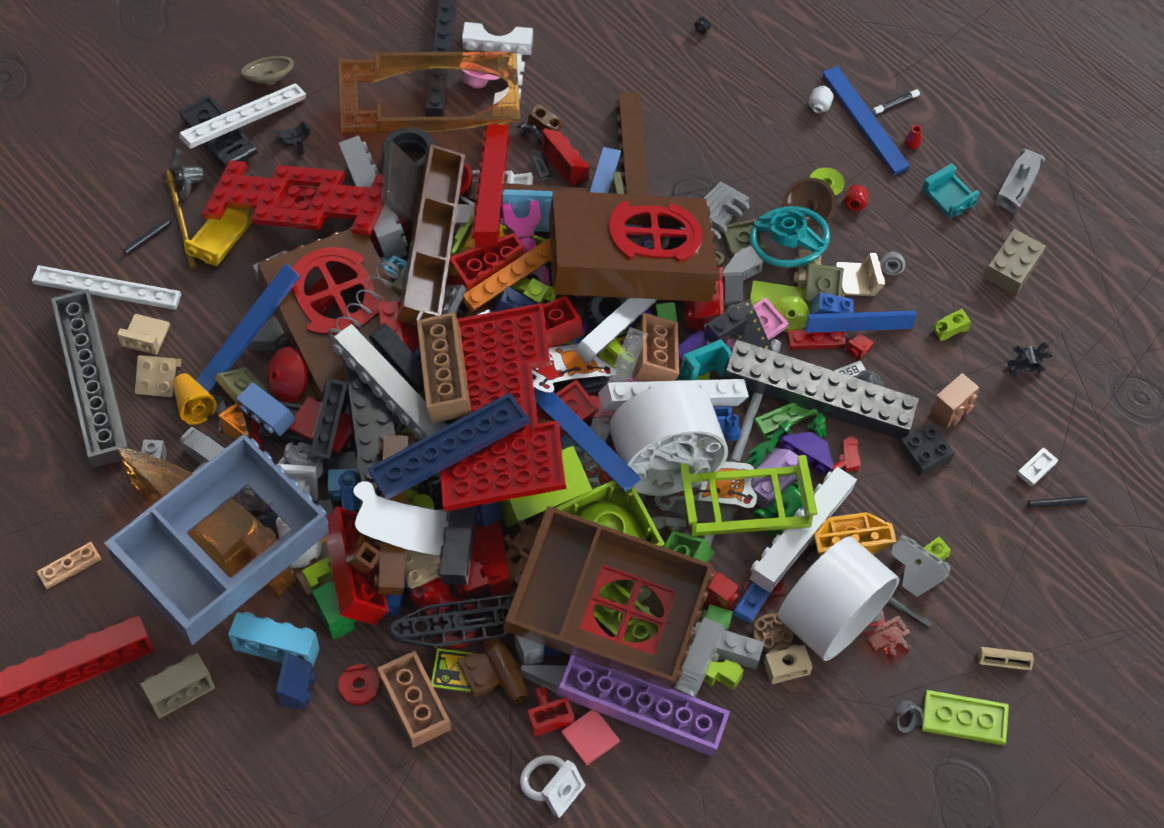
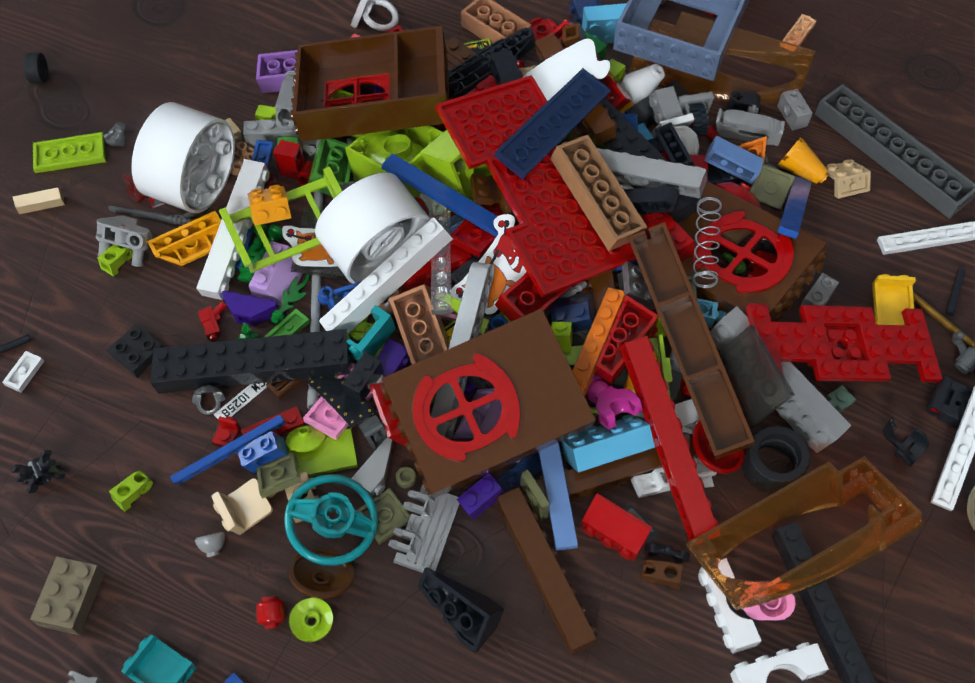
camera: 160 degrees right, 0 degrees up
(144, 334) = (882, 200): tan bracket -> none
(703, 144) = (467, 611): none -> black wedge
(763, 518) = (269, 205): none -> light orange bracket
(954, 401) = (113, 396): nougat brick -> none

